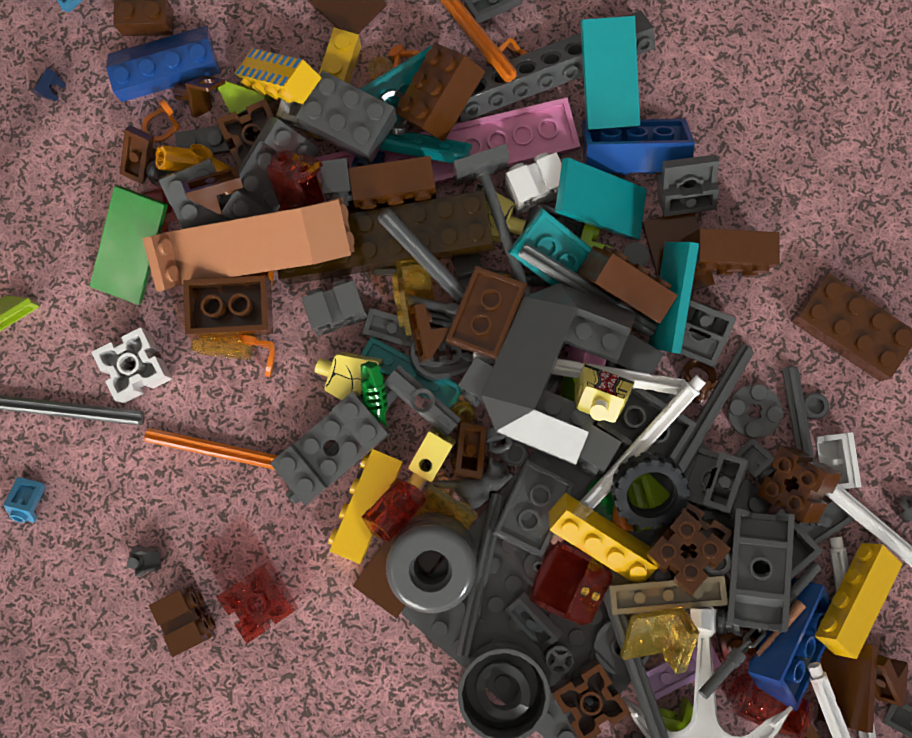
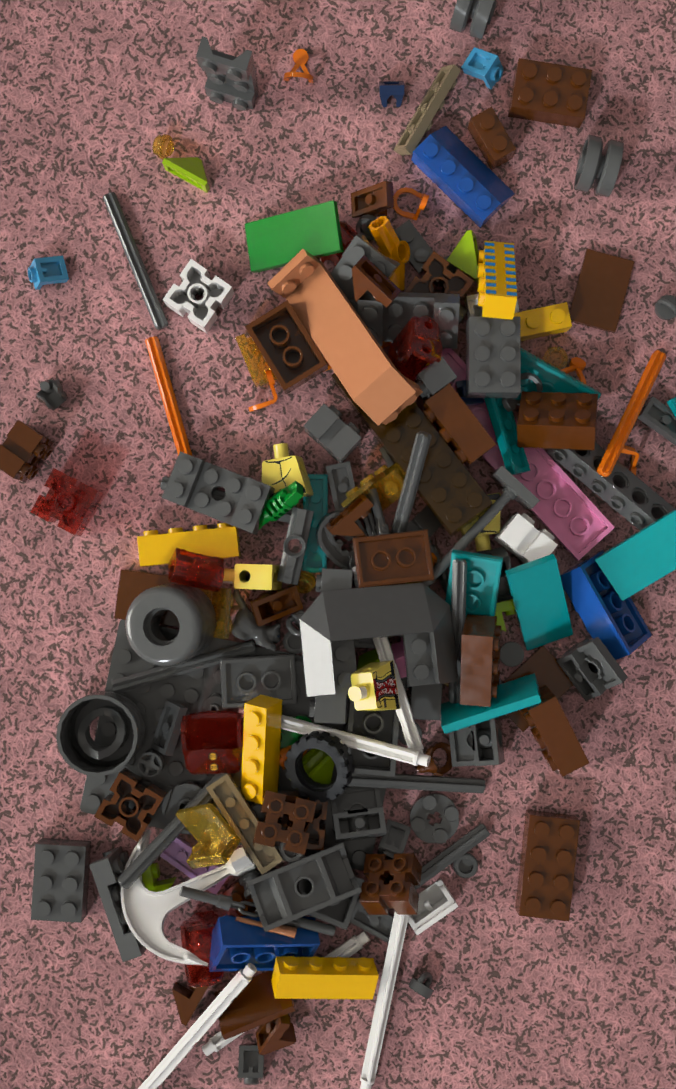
camera: 60 degrees right, 5 degrees up
(81, 57) = (430, 105): none -> dark tan plate
(198, 93) = (451, 221): reddish brown bracket -> none

